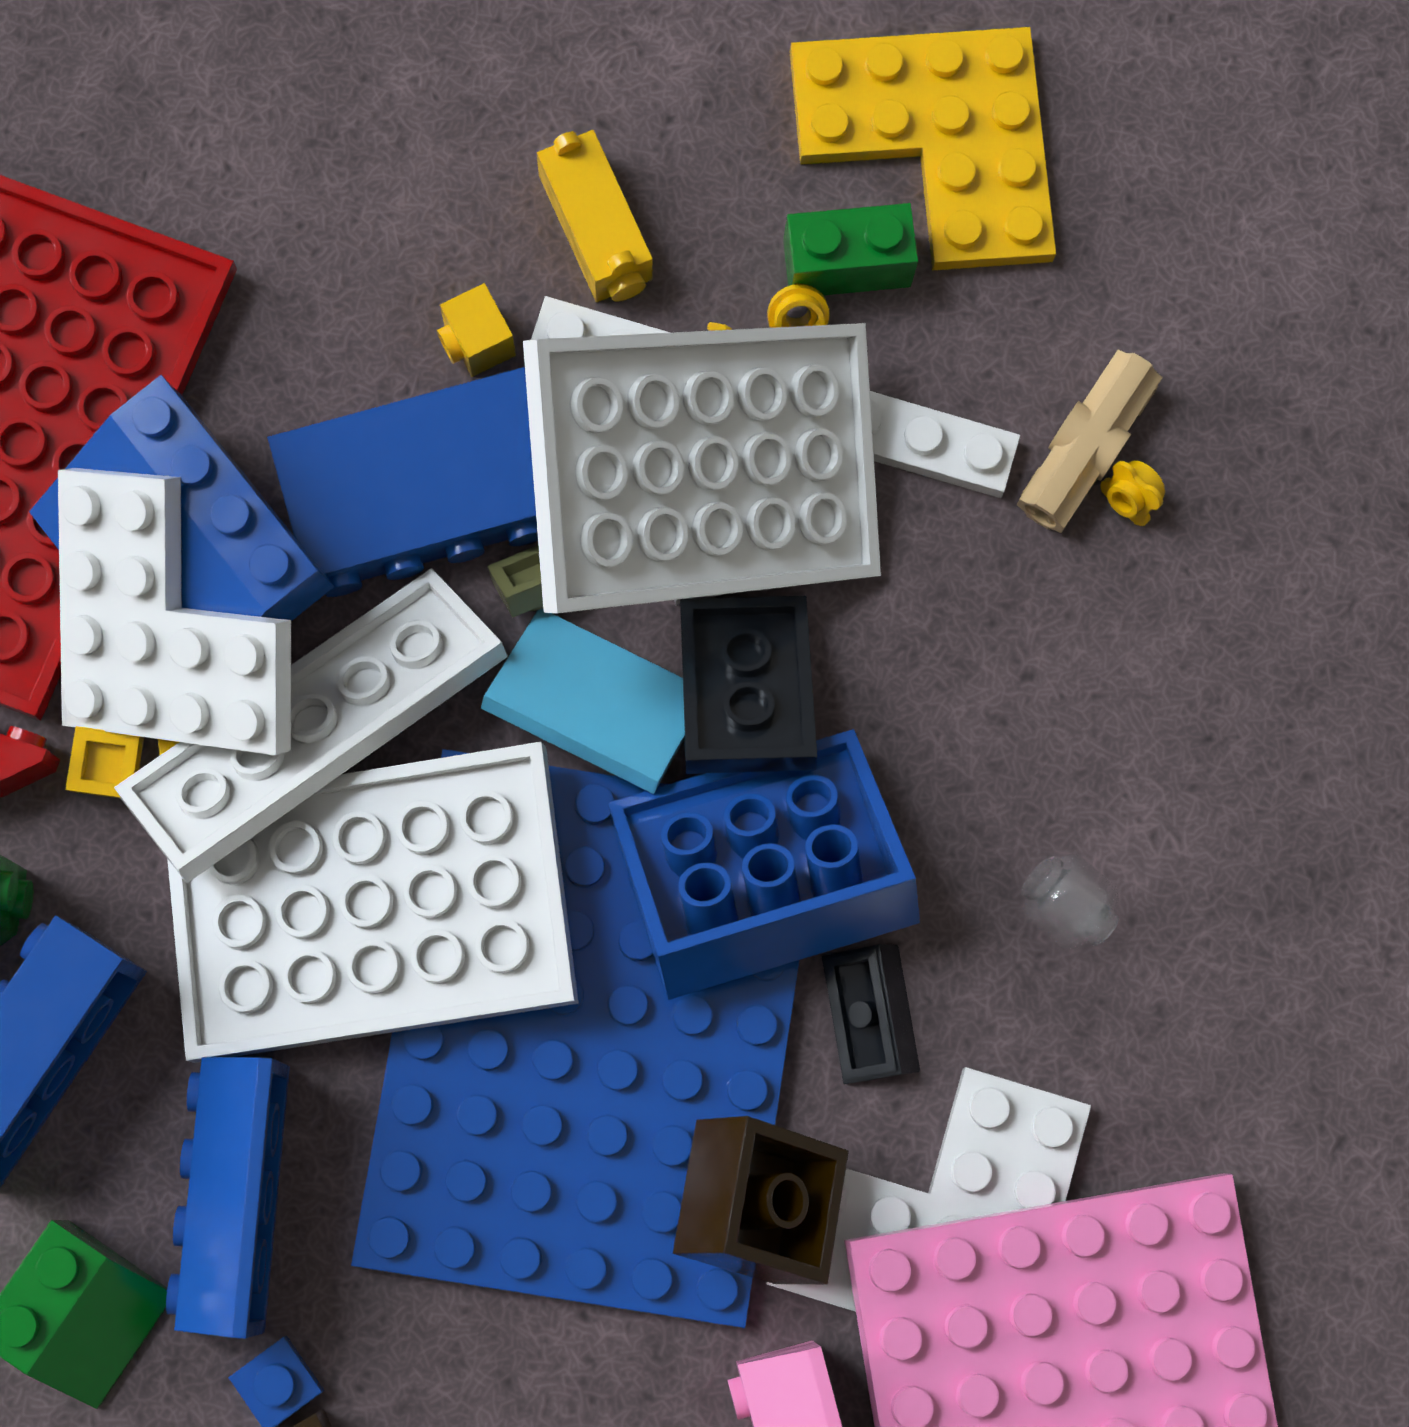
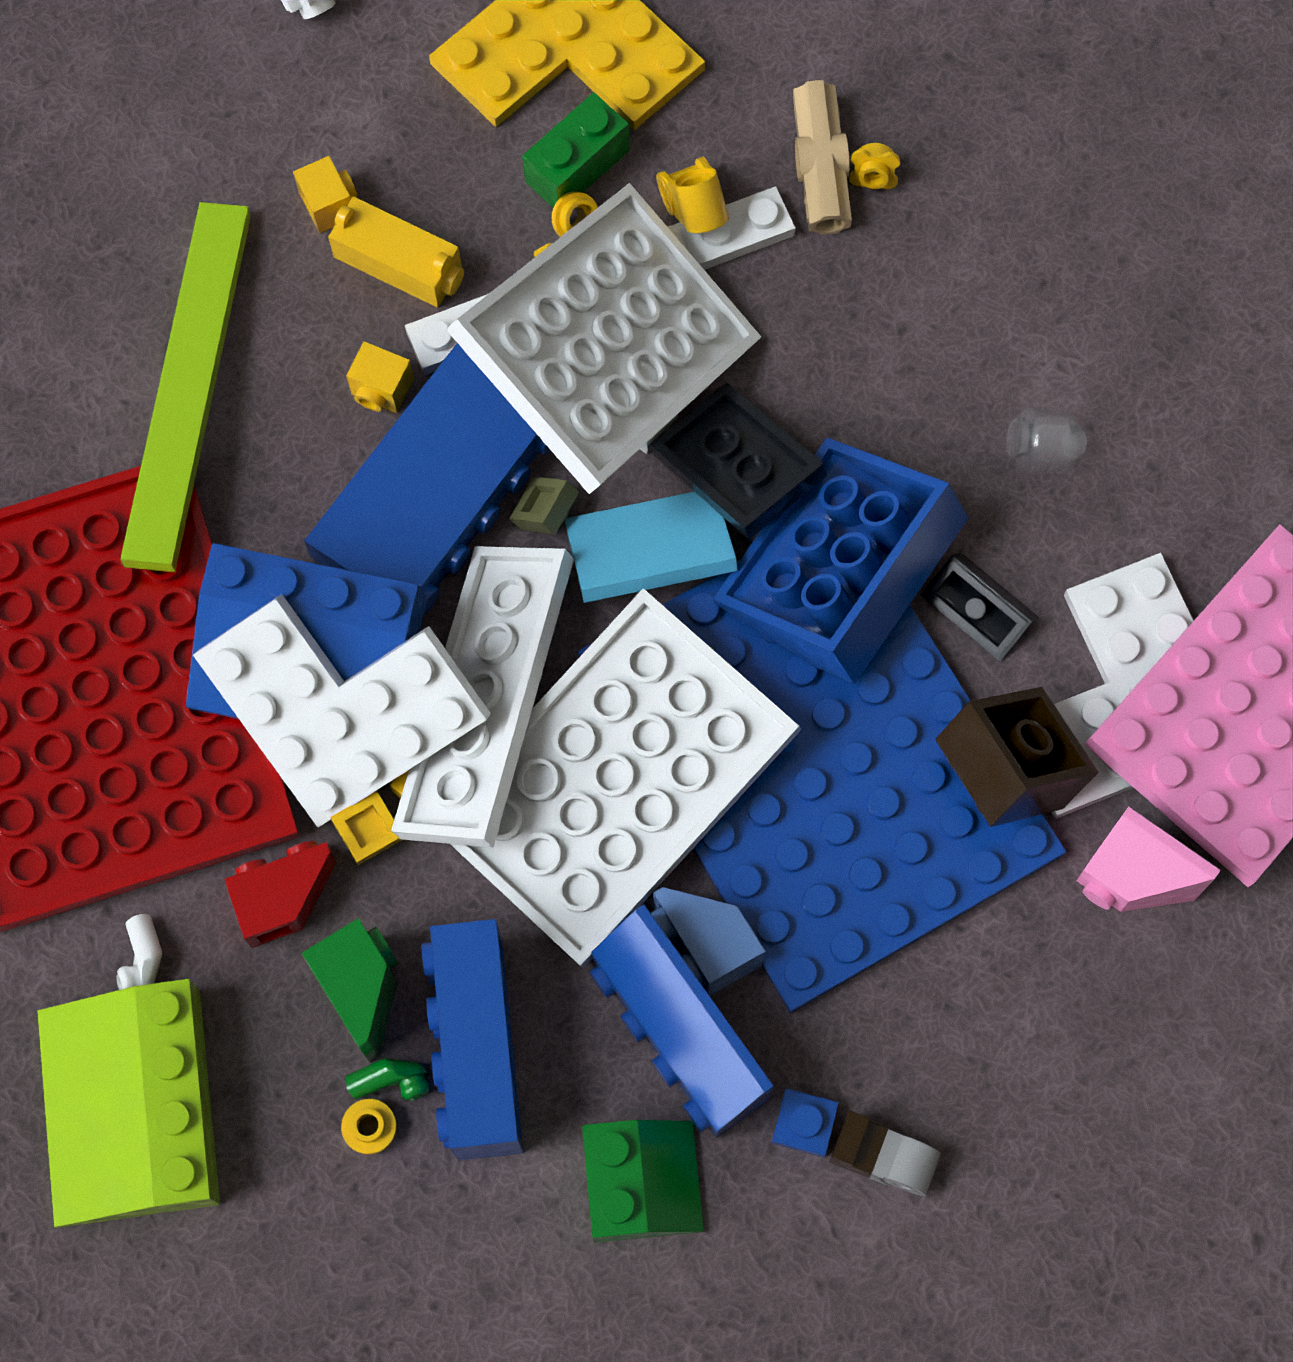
camera: 30 degrees left, 5 degrees down
(286, 198) = (186, 388): none -> lime tile
(330, 1133) = (709, 937): none -> medium blue slope
(576, 101) = (324, 191): none -> yellow plate
(927, 386) = (694, 197): none -> yellow piece

